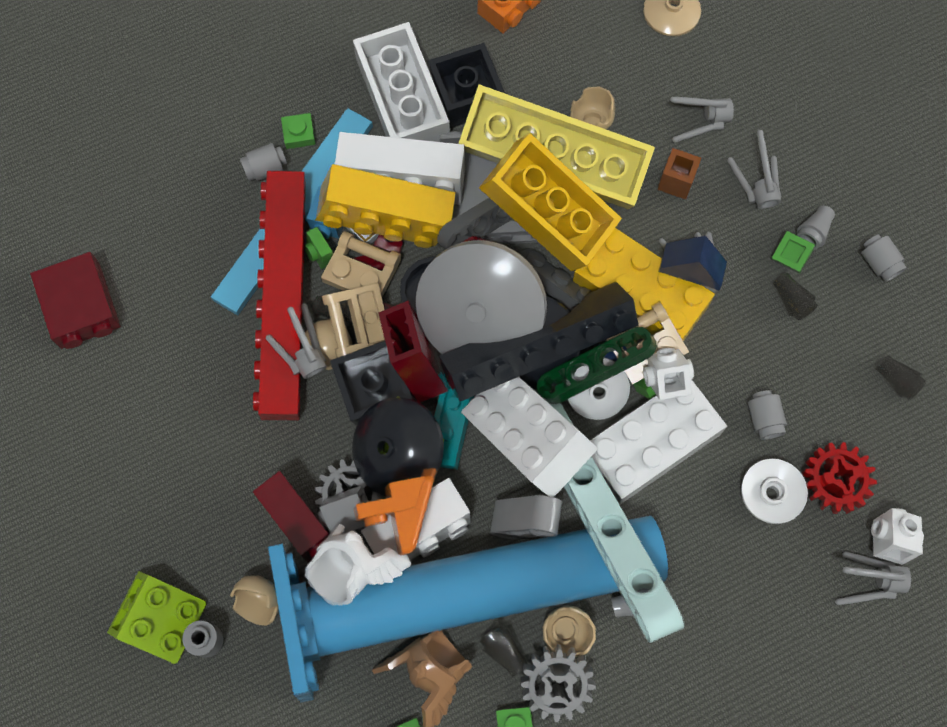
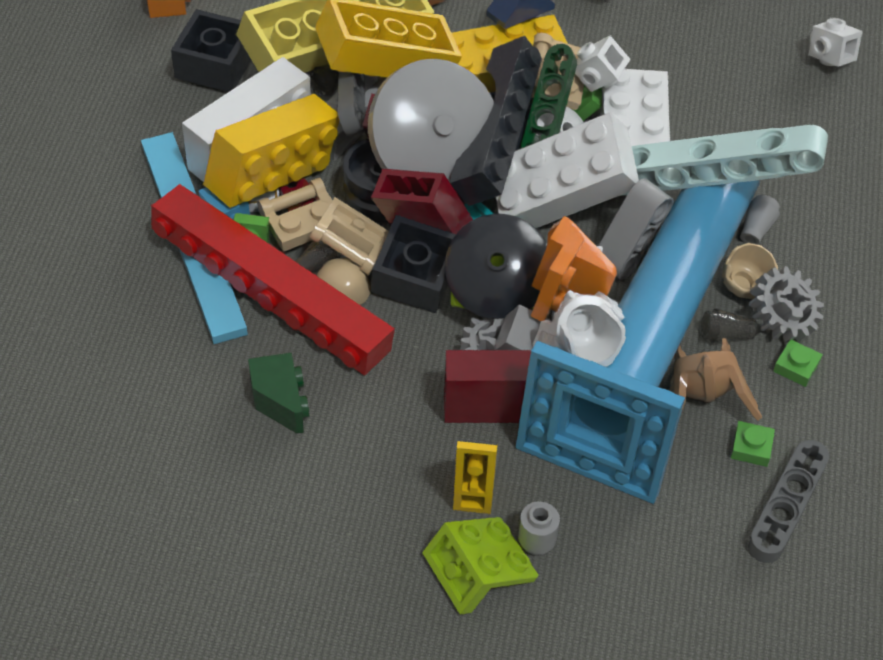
camera: 55 degrees left, 20 degrees down
(75, 301) = (107, 438): dark red brick -> none
(194, 375) = (276, 390): none -> dark green slope
(208, 563) = (474, 477): none -> yellow slope
(255, 600) = (537, 467): tan hair -> none
(261, 160) = (126, 223): light grey brick -> none
(298, 131) = (121, 187): bright green plate -> none
(309, 358) = (355, 283): light grey plant -> none
(401, 84) = (161, 85): white brick -> none
(767, 415) = (674, 56): light grey brick -> none
(787, 483) = (739, 88): white dish -> none
(841, 490) = (760, 49): red gear -> none
(889, 577) = (860, 72): light grey plant -> none

